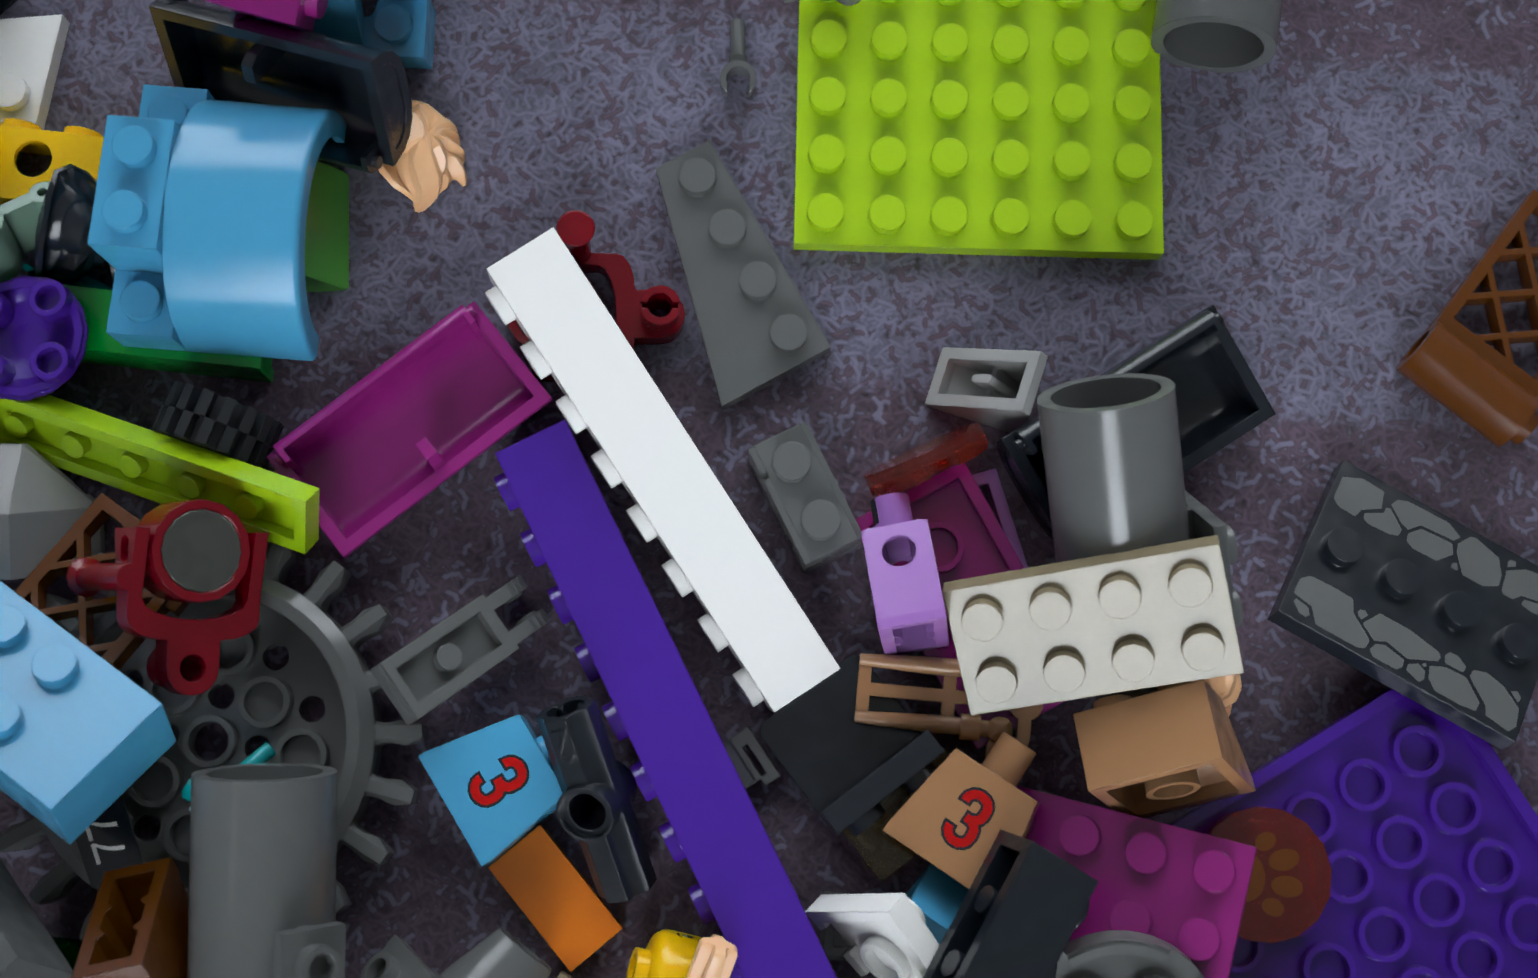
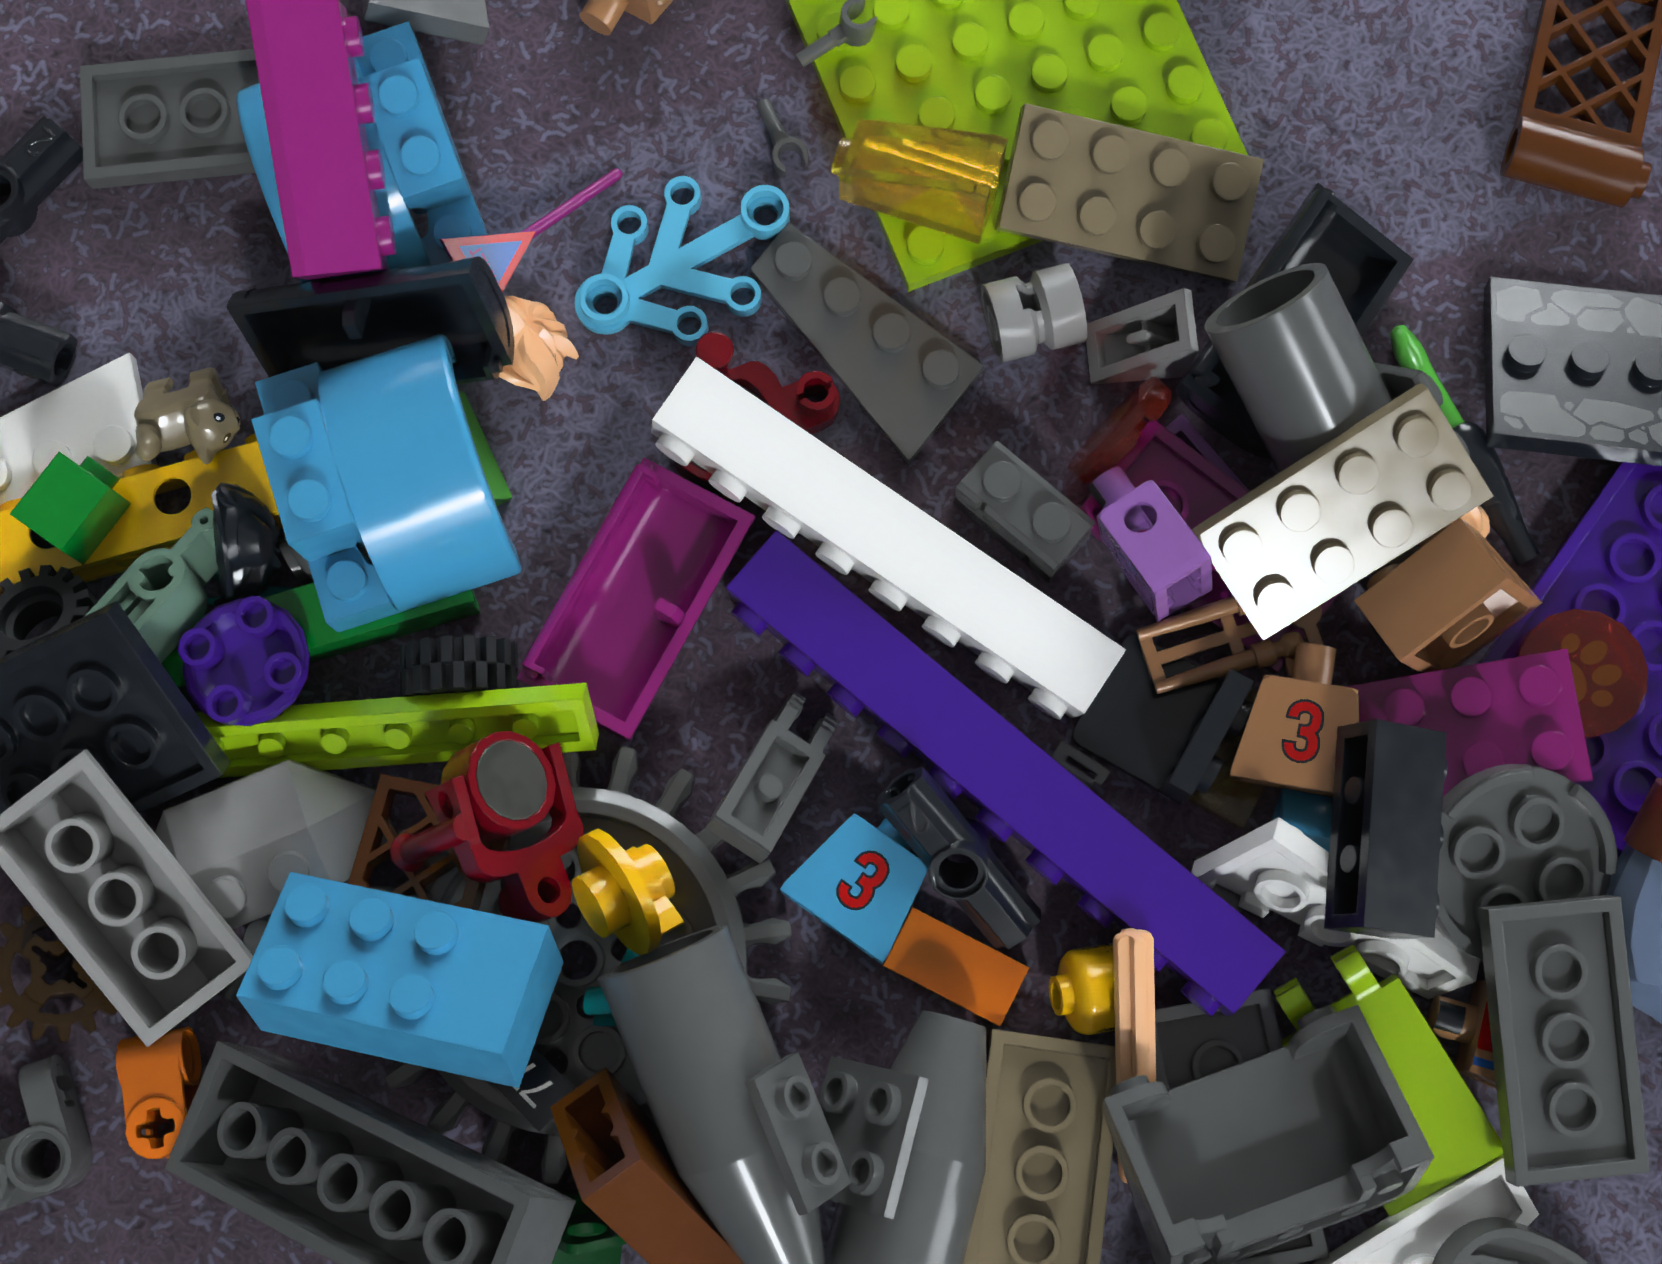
camera: 15 degrees left, 0 degrees up
(78, 91) = (184, 417): none -> dark tan animal
(265, 700) = (625, 891): none -> yellow piece
(431, 61) = (506, 249): none -> piece
(589, 136) = (675, 266): none -> medium azure plant
(845, 146) = (922, 174): none -> clear yellow slope
(897, 316) = (1034, 312): none -> light grey wheel
(1034, 242) = (1128, 193): none -> dark tan plate
(1256, 635) = (1502, 508): none -> black piece

